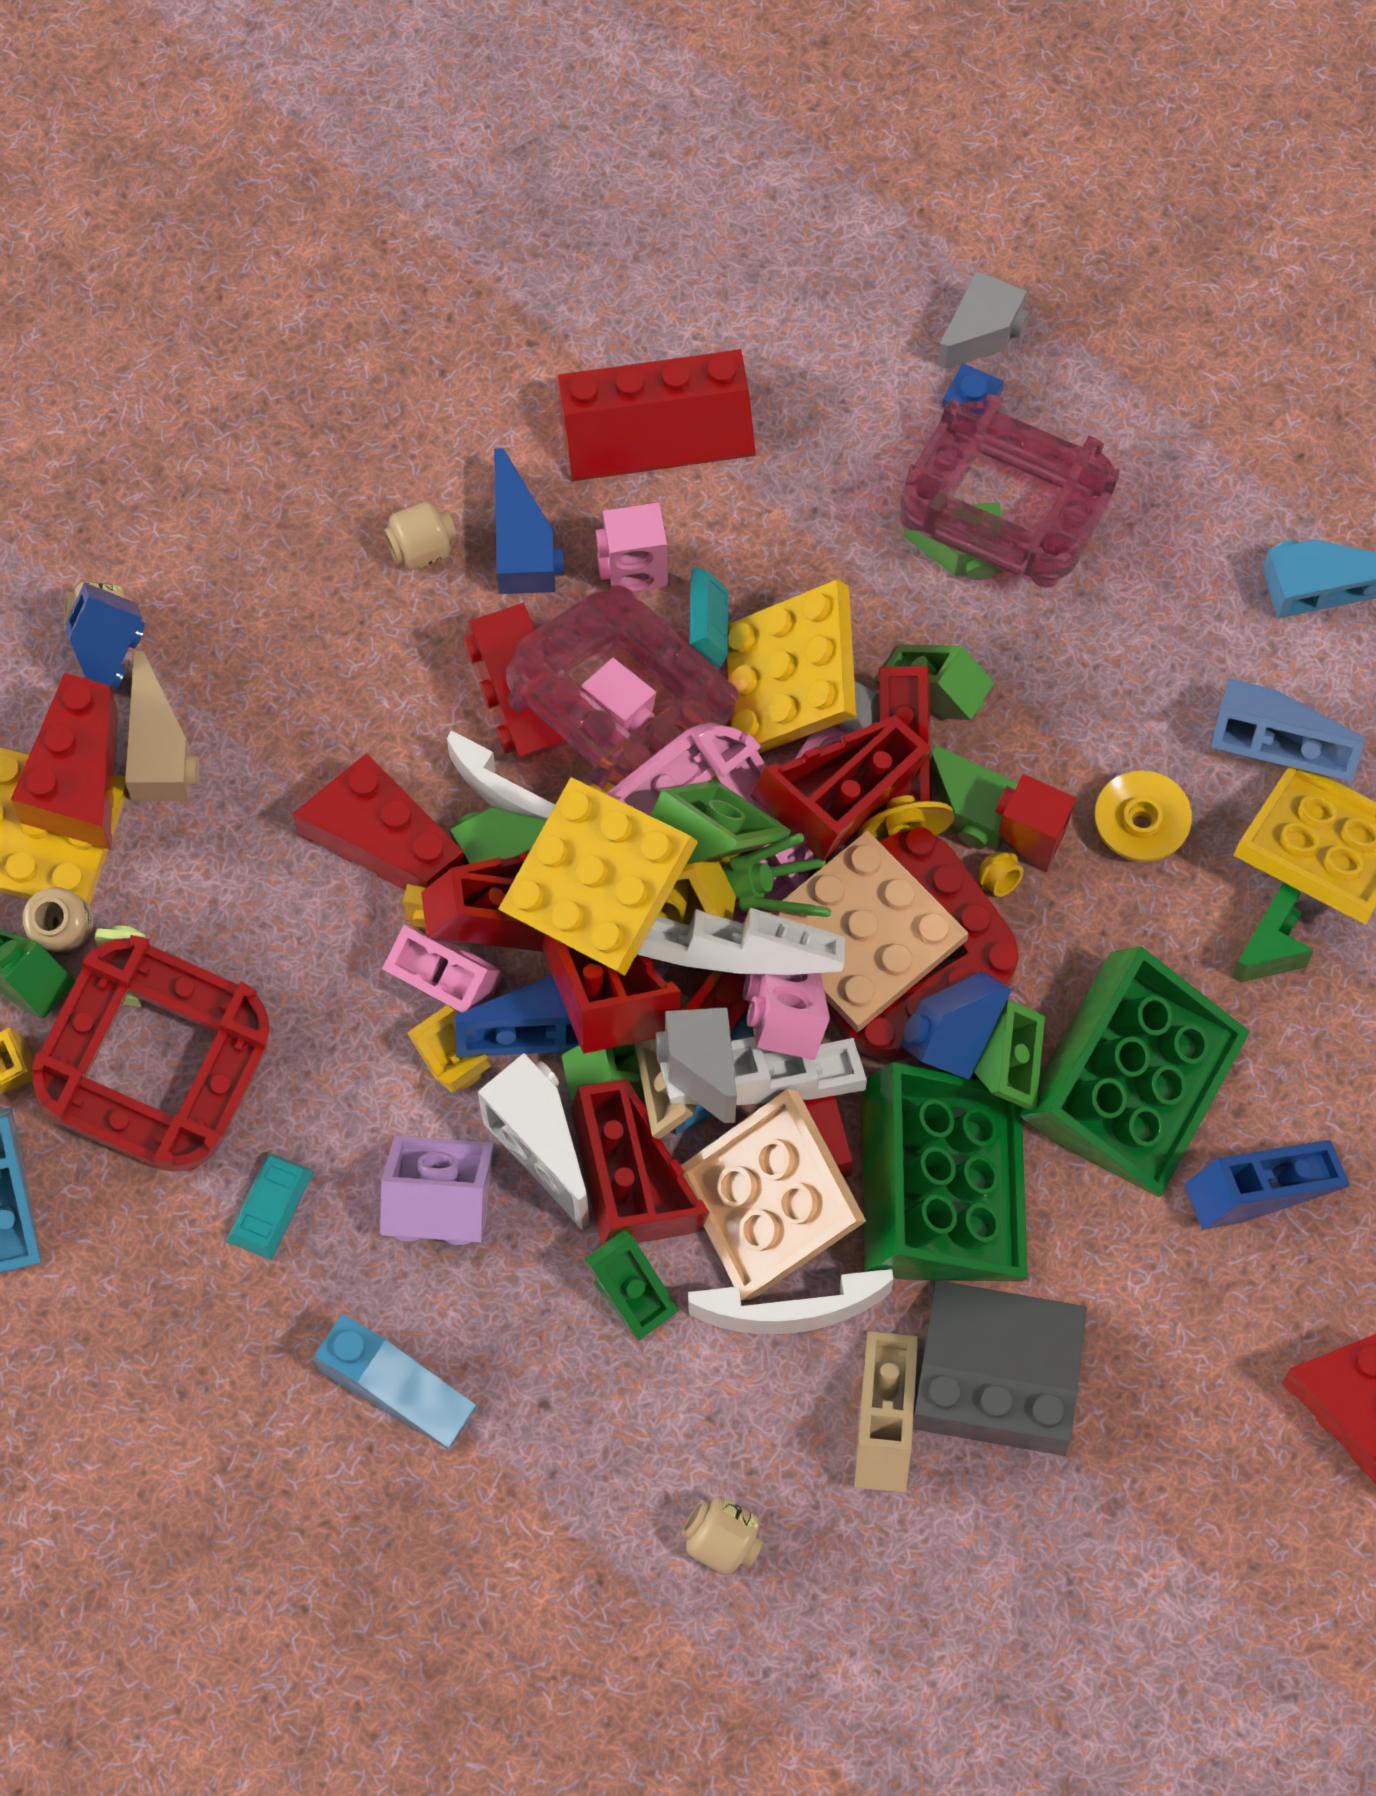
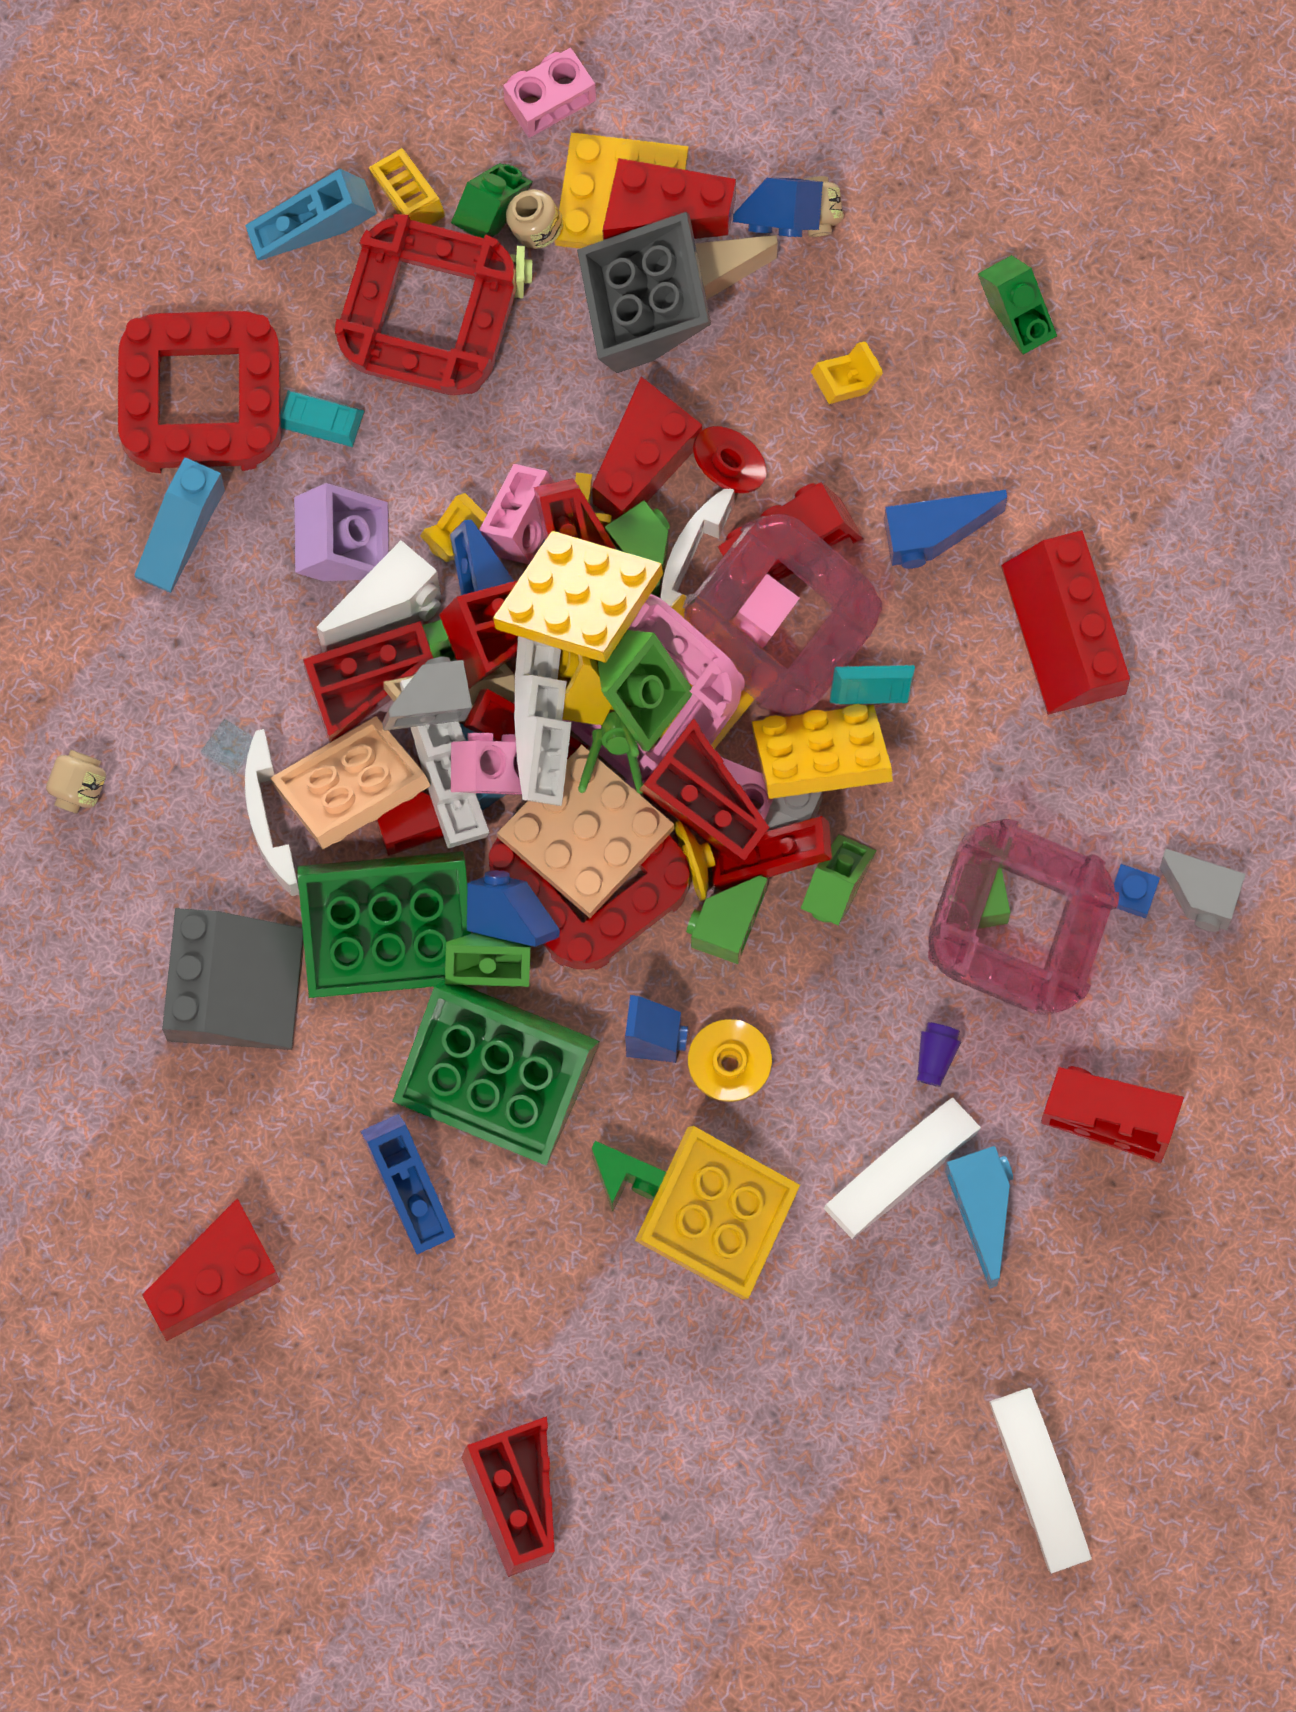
camera: 85 degrees right, 5 degrees up
(185, 790) = (644, 292): none -> dark grey slope
(211, 1415) = (208, 444): none -> red plate
(257, 418) = (1018, 303): none -> green slope
(317, 601) = (848, 375): none -> yellow bracket
(407, 737) = (729, 459): none -> red dish
(420, 535) = (921, 445): tan head -> none
(631, 1284) = (271, 689): green slope -> none
(633, 548) = (922, 613): bright pink brick -> none
(693, 1348) = (228, 747): none -> clear light blue tile
(886, 1412) = (156, 891): tan slope -> none
(1000, 873) = (665, 948): yellow plate -> none
(1034, 819) = (701, 962): red slope -> none
(1106, 892) = (654, 1031): none -> blue slope
(1147, 605) = (936, 1053): none -> dark purple cone
(1235, 430) = (1112, 1112): none -> red wedge
(1279, 649) = (902, 1168): none -> white slope
(1284, 732) = (823, 1158): medium blue slope -> none

